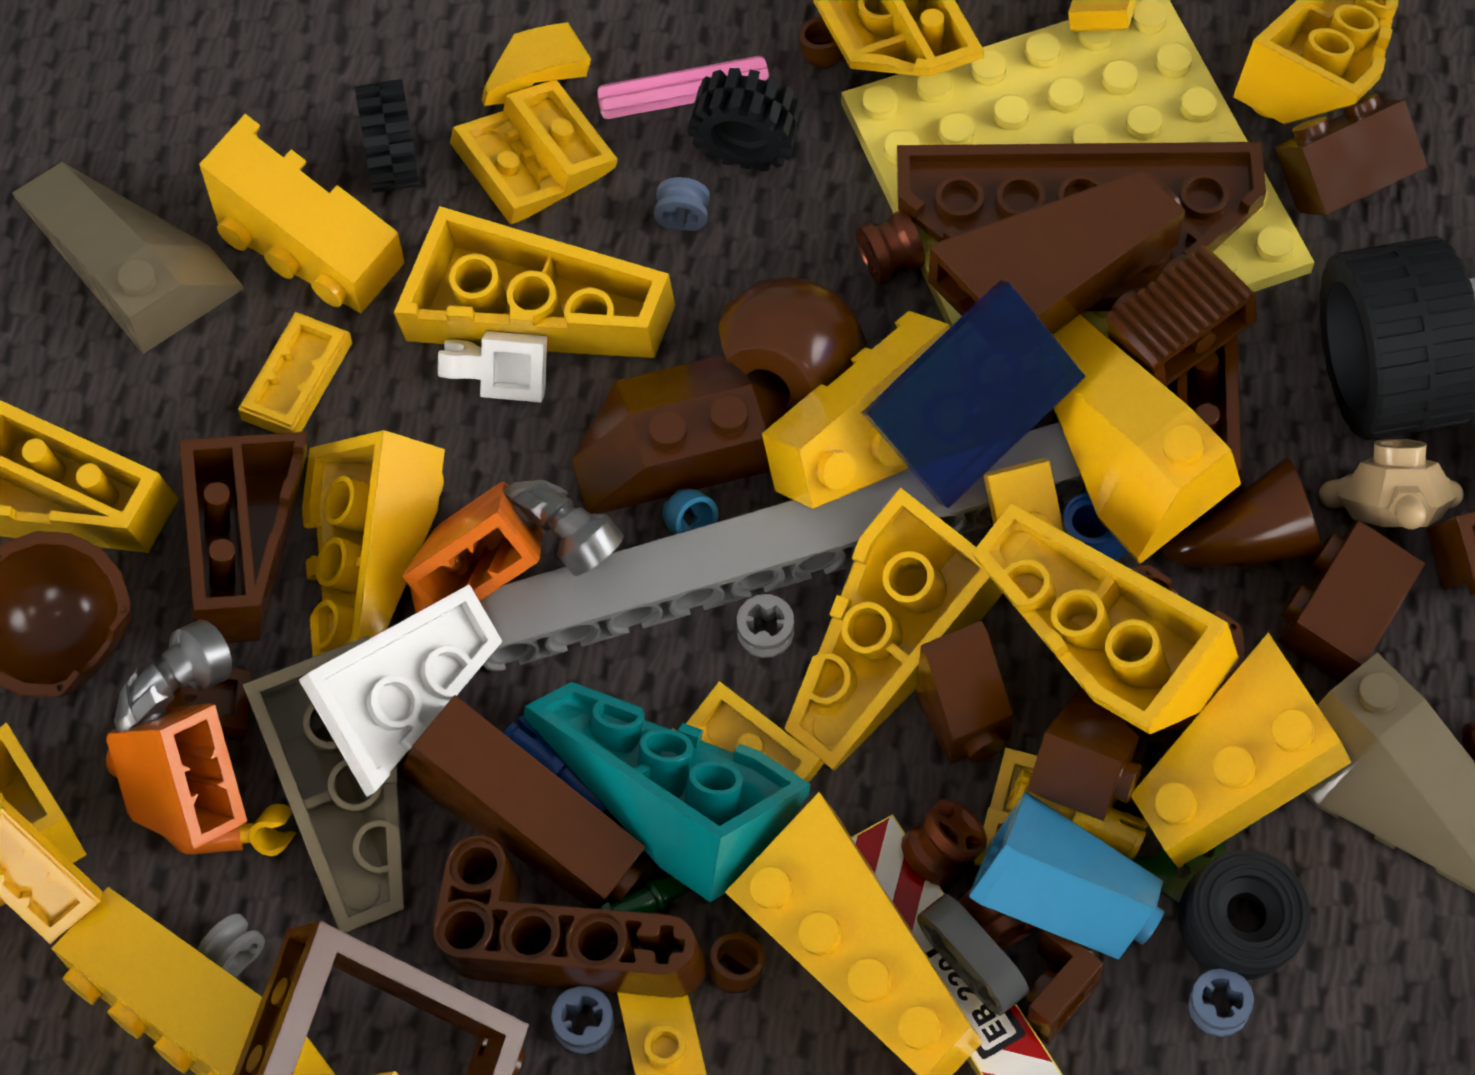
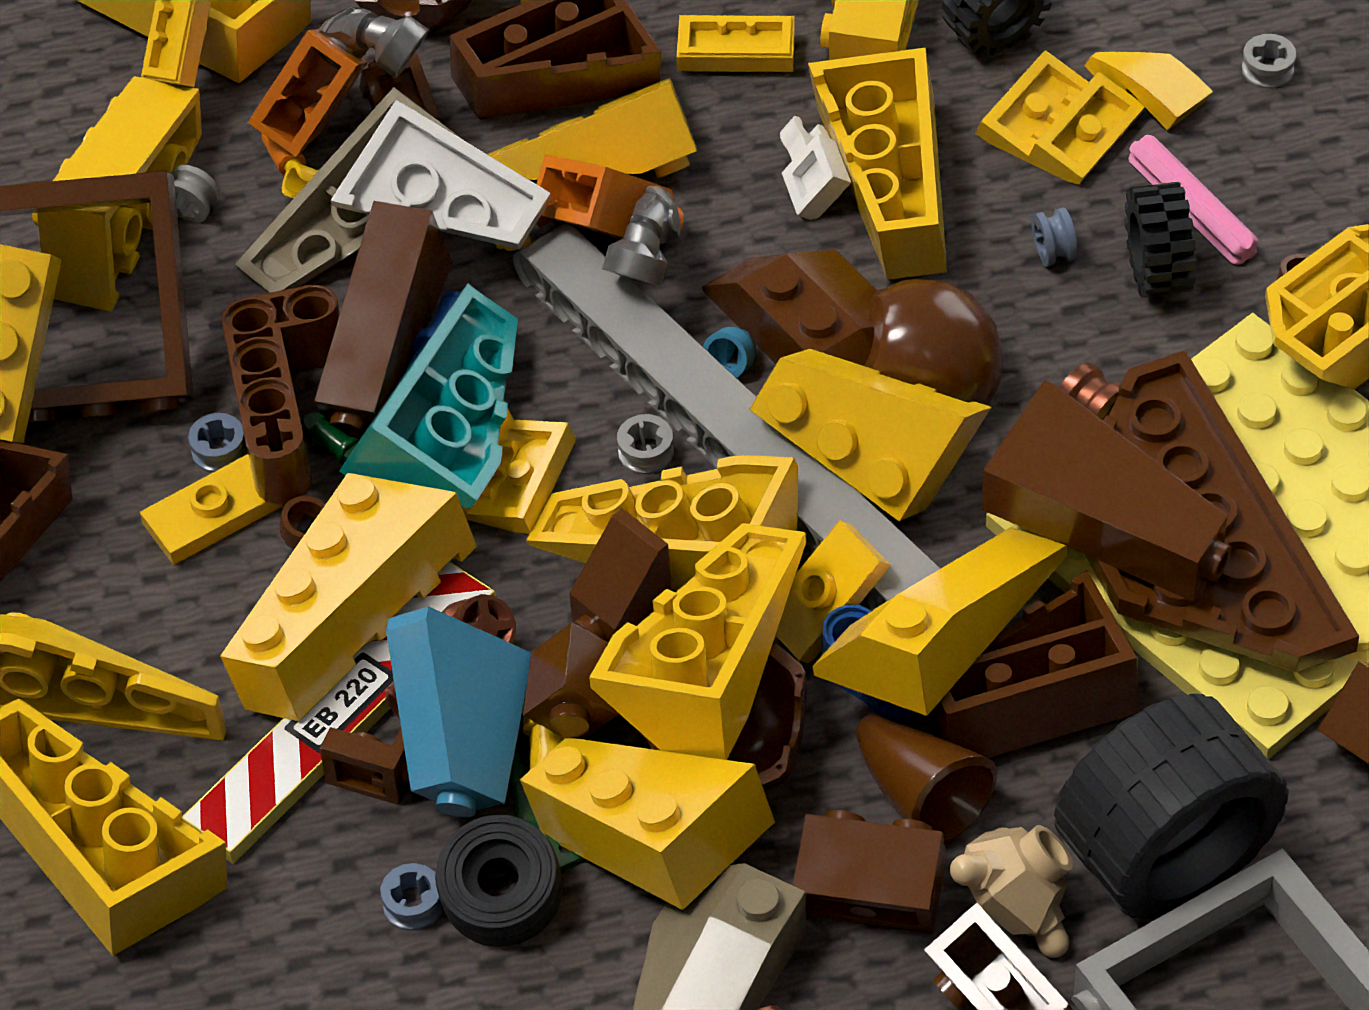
camera: 70 degrees right, 10 degrees down
(972, 954) = (359, 681): dark grey beam -> none
(974, 394) = (908, 468): clear blue tile -> none
(1182, 315) = (1082, 605): reddish brown brick -> none

